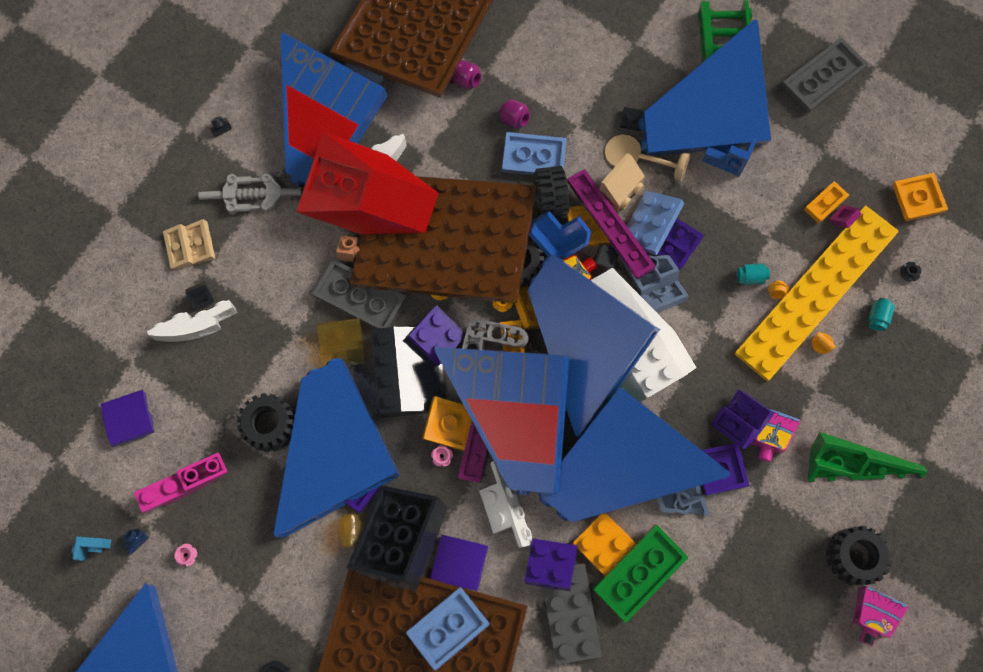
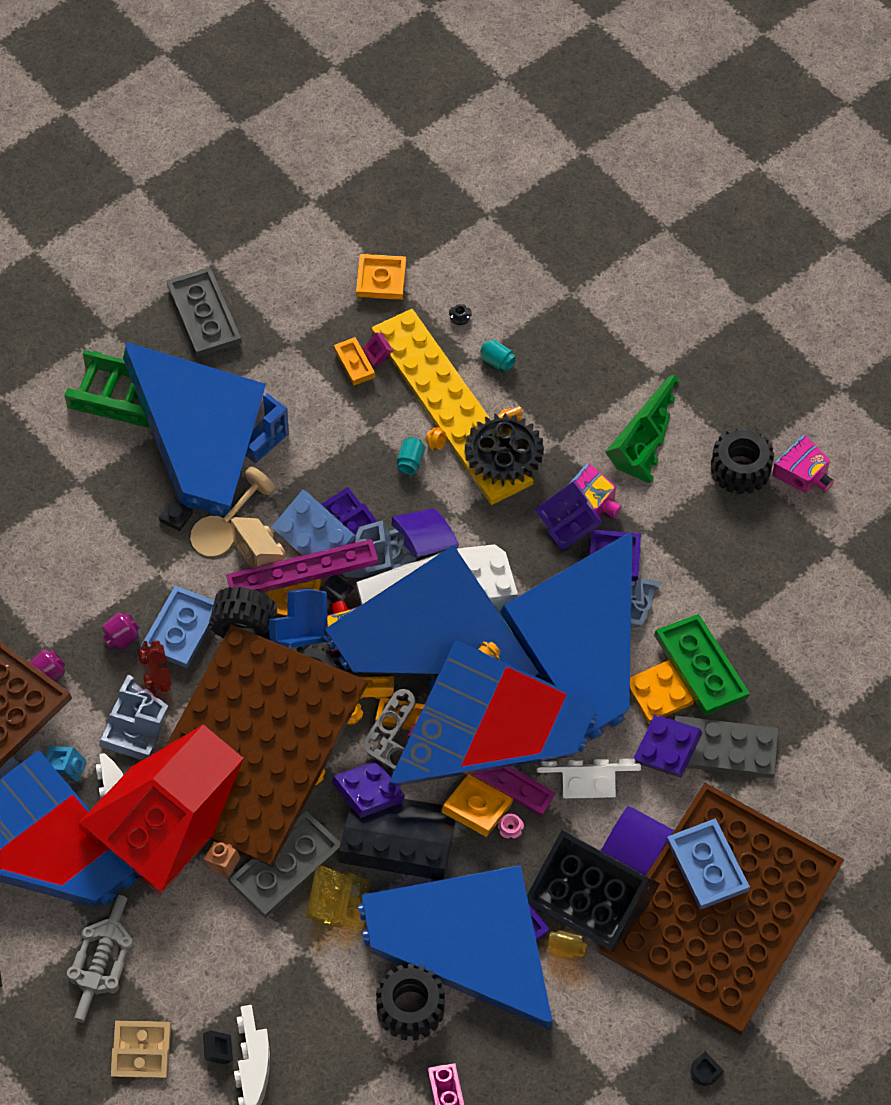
camera: 75 degrees left, 15 degrees down
(394, 115) = (66, 761): none -> dark azure bracket
(445, 149) = (132, 719): none -> sand blue slope
(495, 142) = (151, 658): none -> clear red hinge
(576, 390) = (490, 649): none -> light orange plate
(682, 307) = (424, 532): none -> dark purple slope
(803, 356) = (504, 449): none -> black gear

